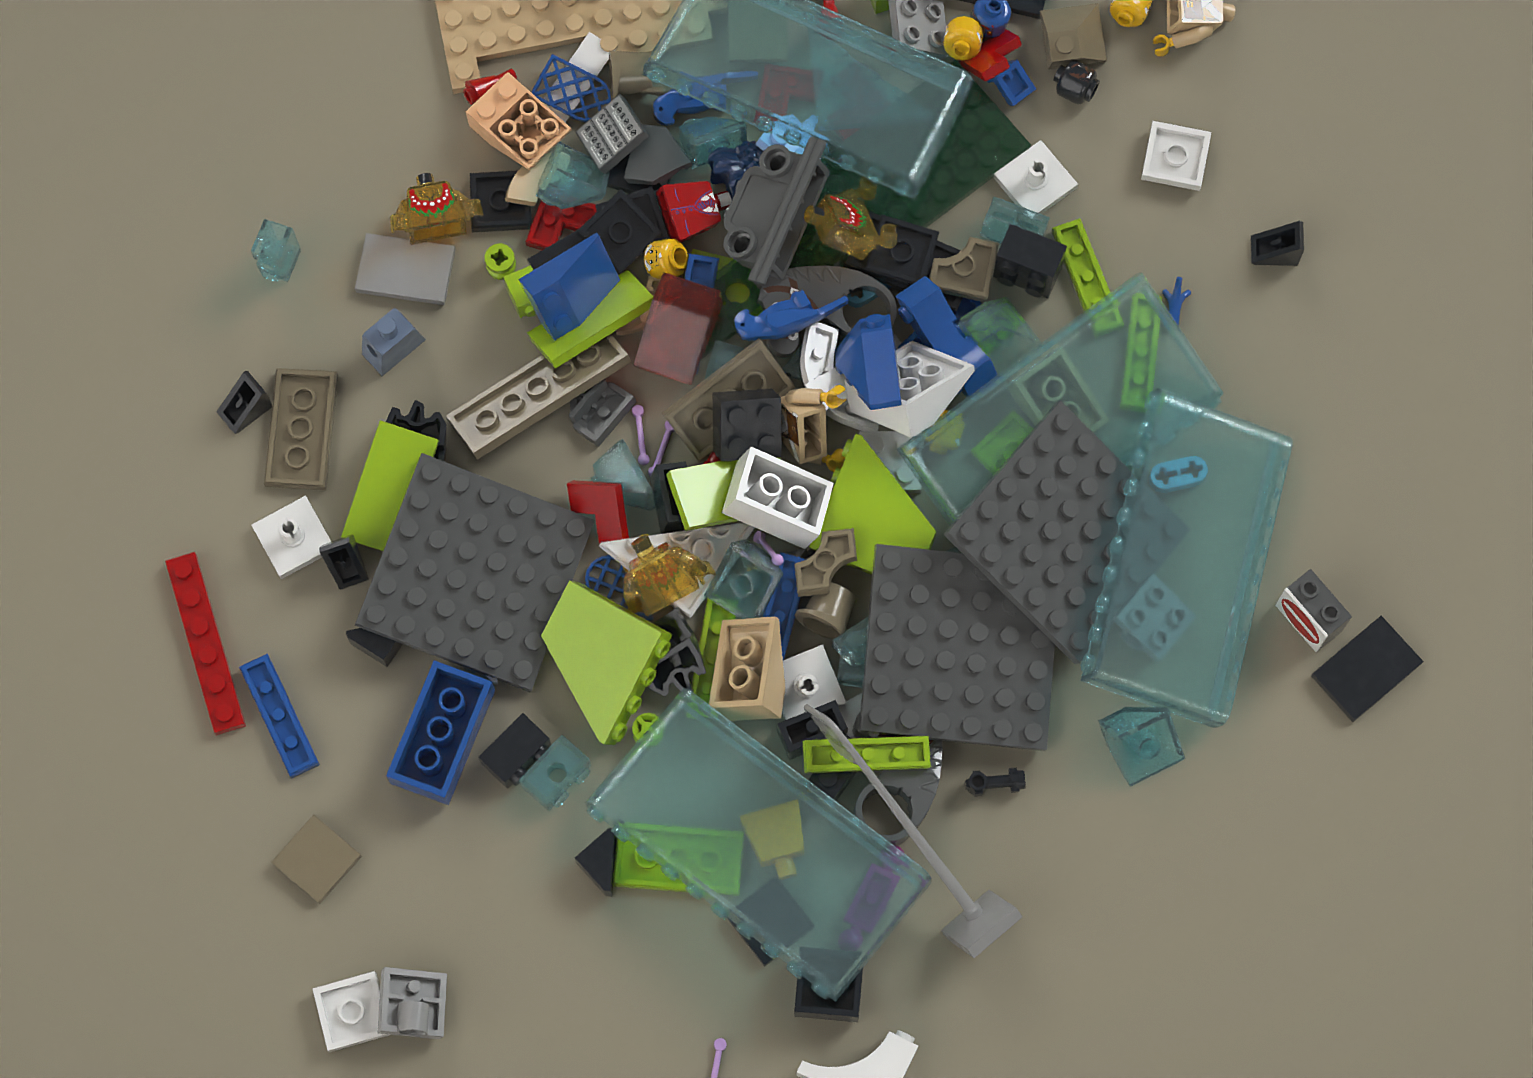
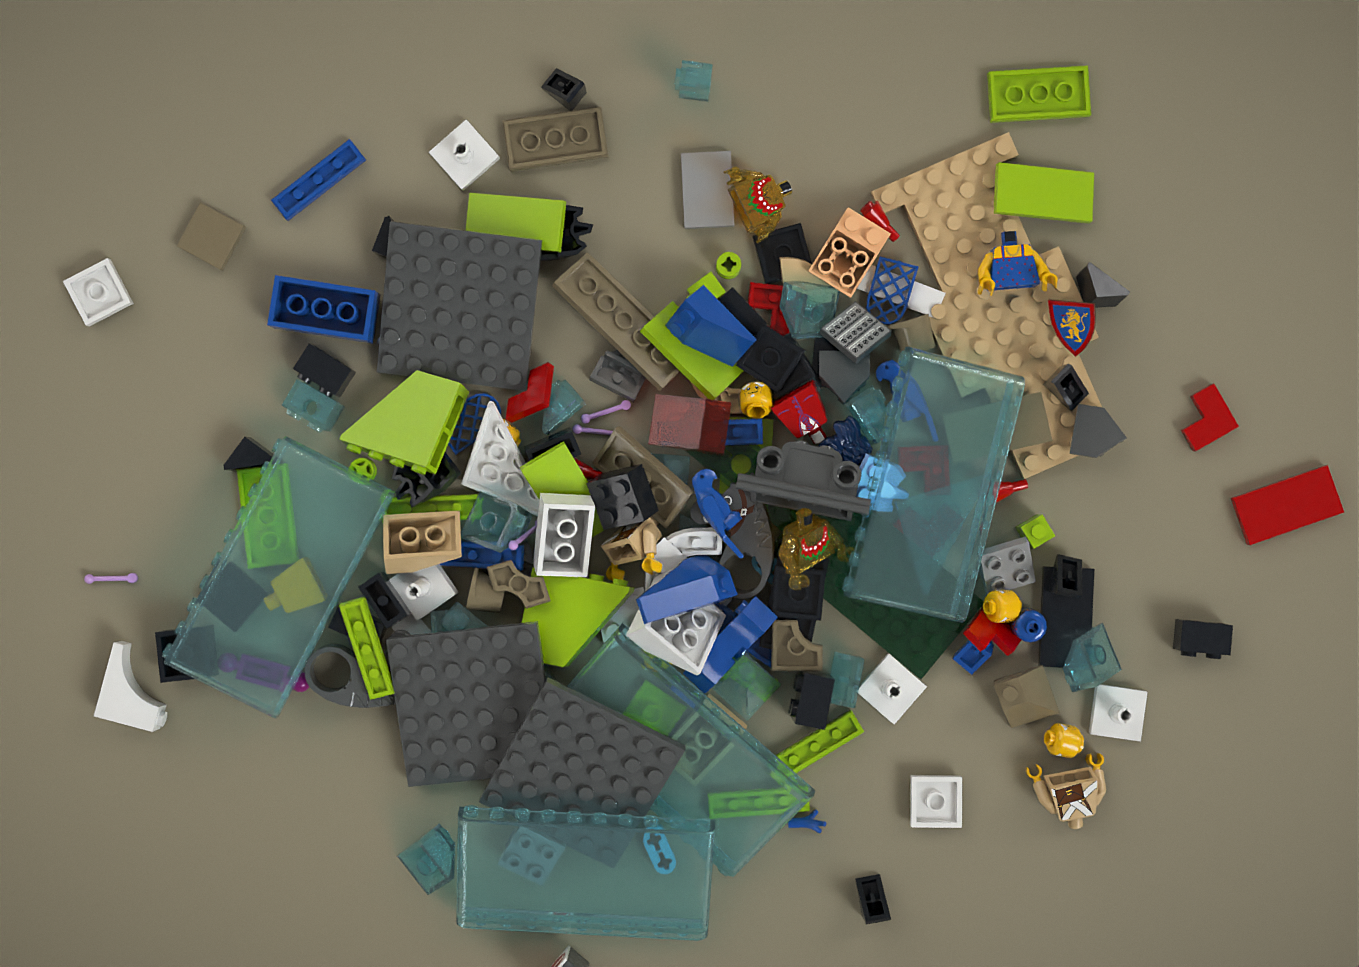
camera: 75 degrees right, 15 degrees up
(205, 643) = (364, 107): red plate -> none
(344, 561) = (450, 198): black slope -> none
(392, 341) = (641, 194): sand blue torso -> none
(412, 1003) = (109, 337): light grey plate -> none
(661, 576) = (476, 457): clear yellow torso -> none
(979, 781) = (372, 739): black bar -> none
(980, 920) = (257, 759): light grey piece -> none
(1076, 82) = (983, 707): black head -> none

